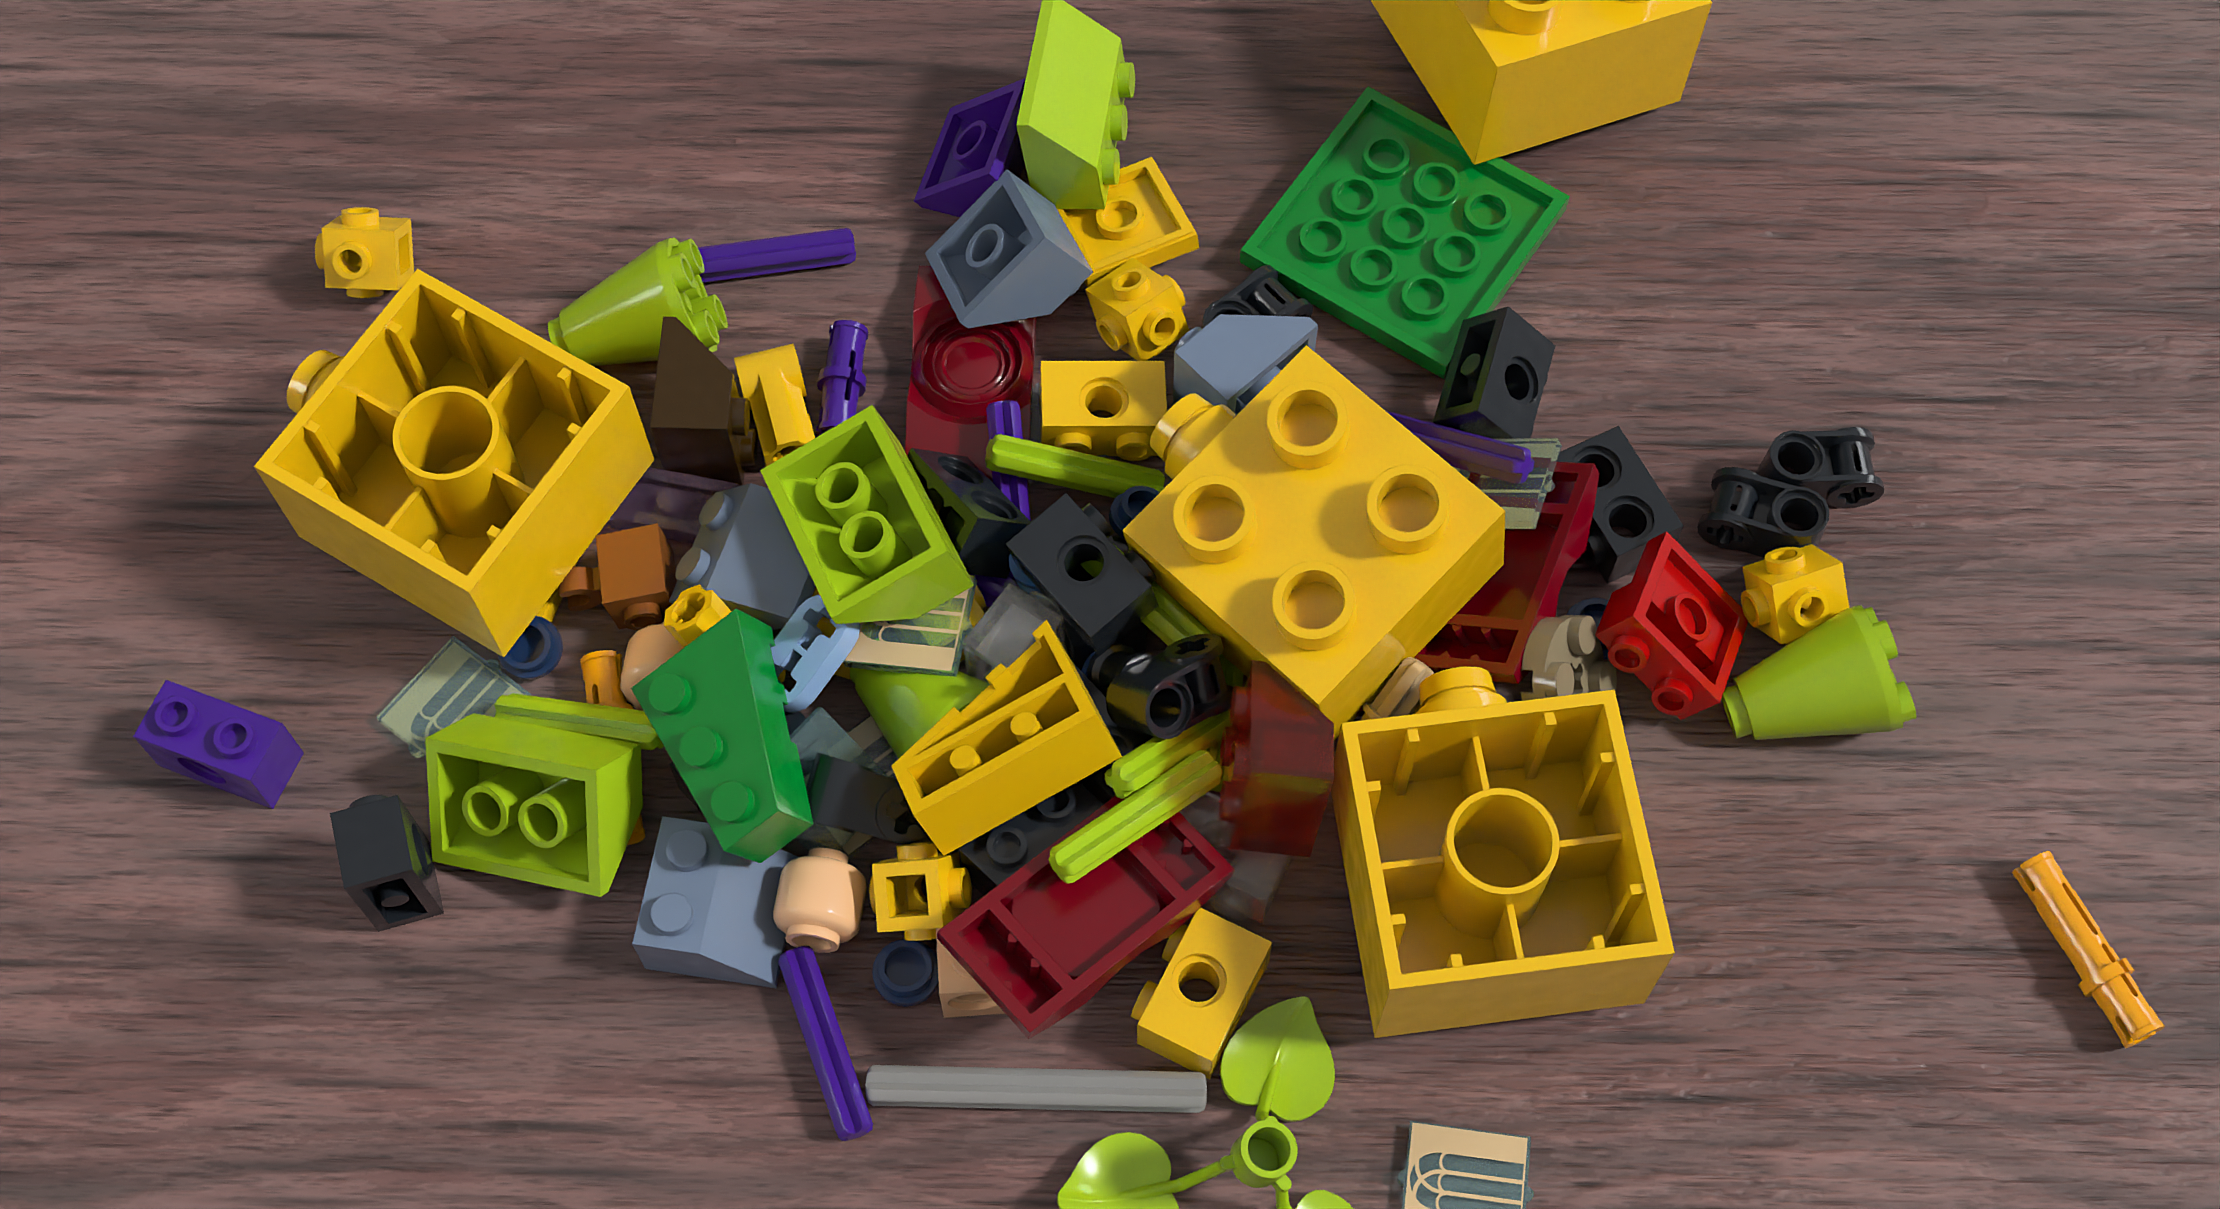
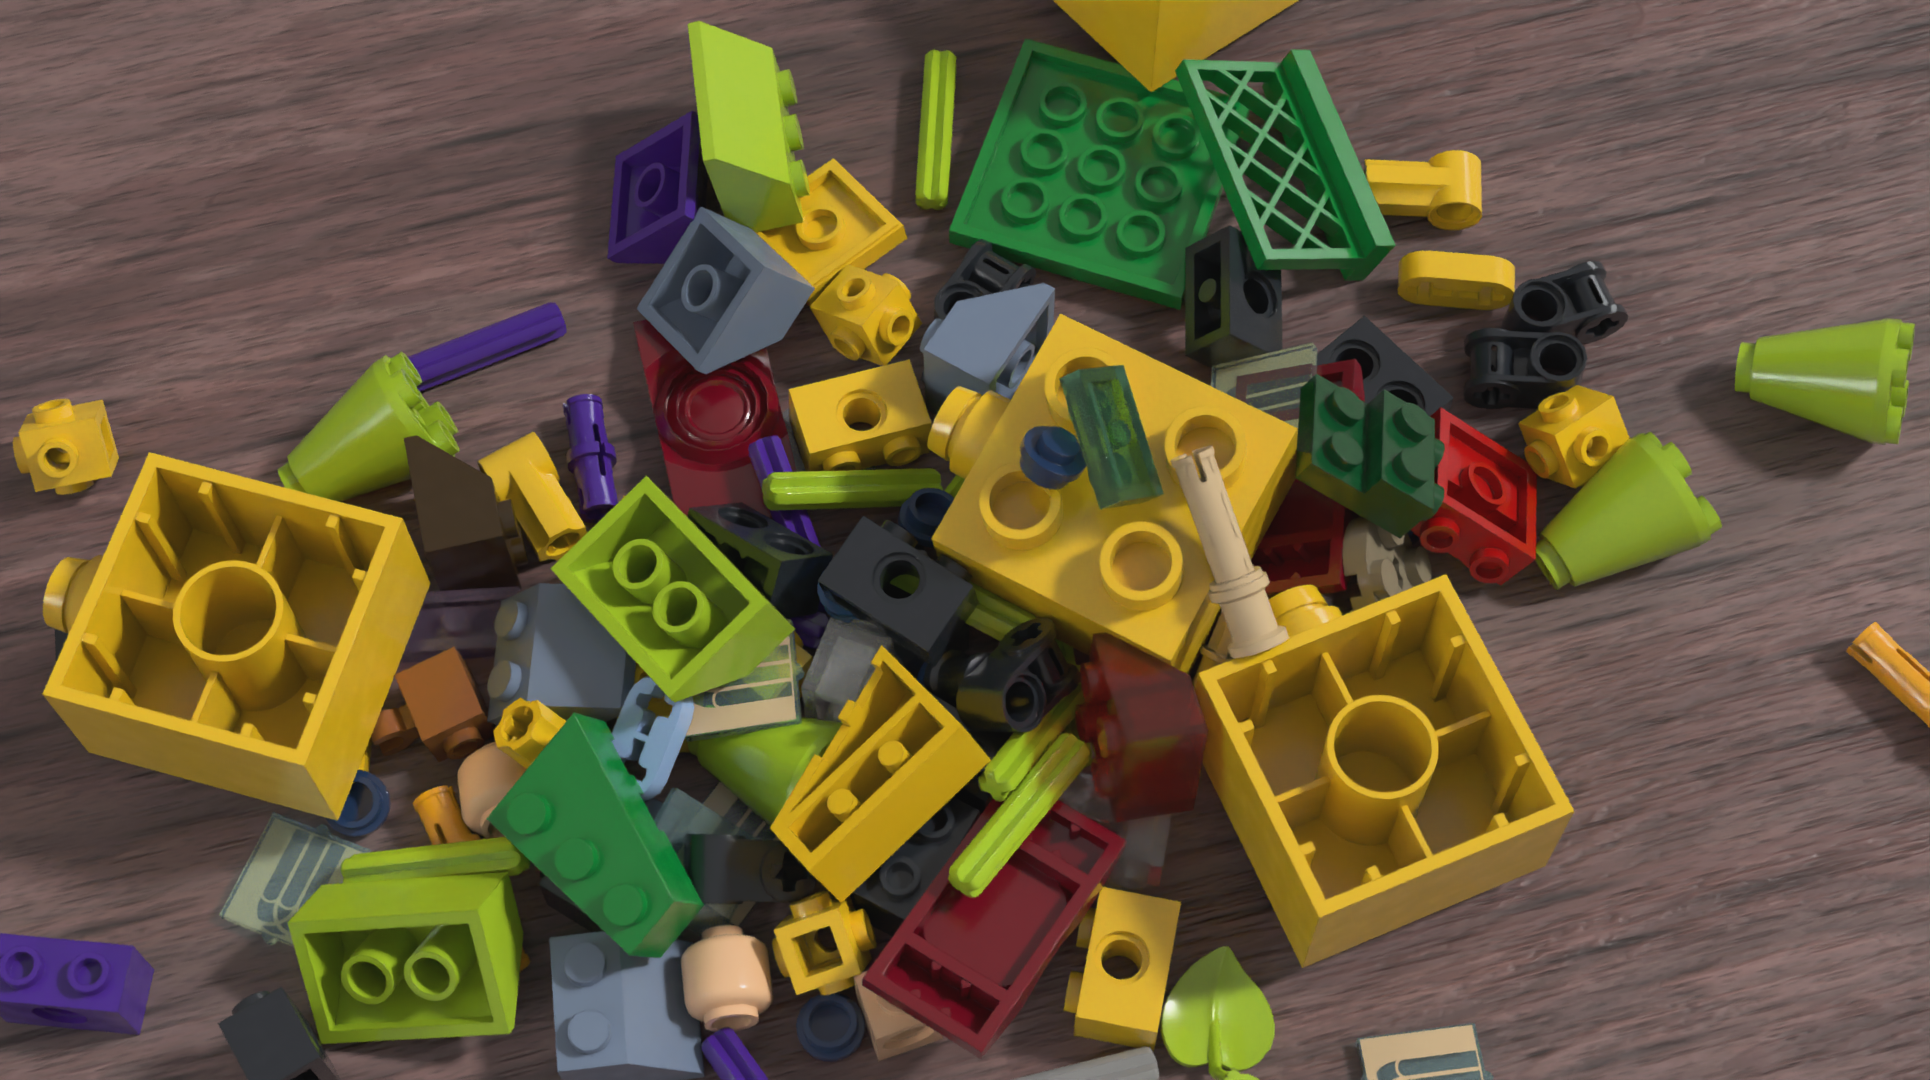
camera: 15 degrees left, 0 degrees up
(1254, 478) = (1051, 457): none -> dark blue plate
(1258, 153) = (936, 130): none -> lime axle
(1316, 472) = (1111, 436): none -> clear green plate
(1403, 647) = (1237, 584): none -> tan pin
(1472, 451) = (1239, 375): axle -> none
(1577, 558) = (1369, 455): none -> dark green plate
(1621, 264) = (1316, 154): none -> green fence
(1722, 414) = (1456, 280): none -> yellow beam
(1732, 324) = (1442, 189): none -> yellow piece
(2077, 599) = (1834, 376): none -> lime cone

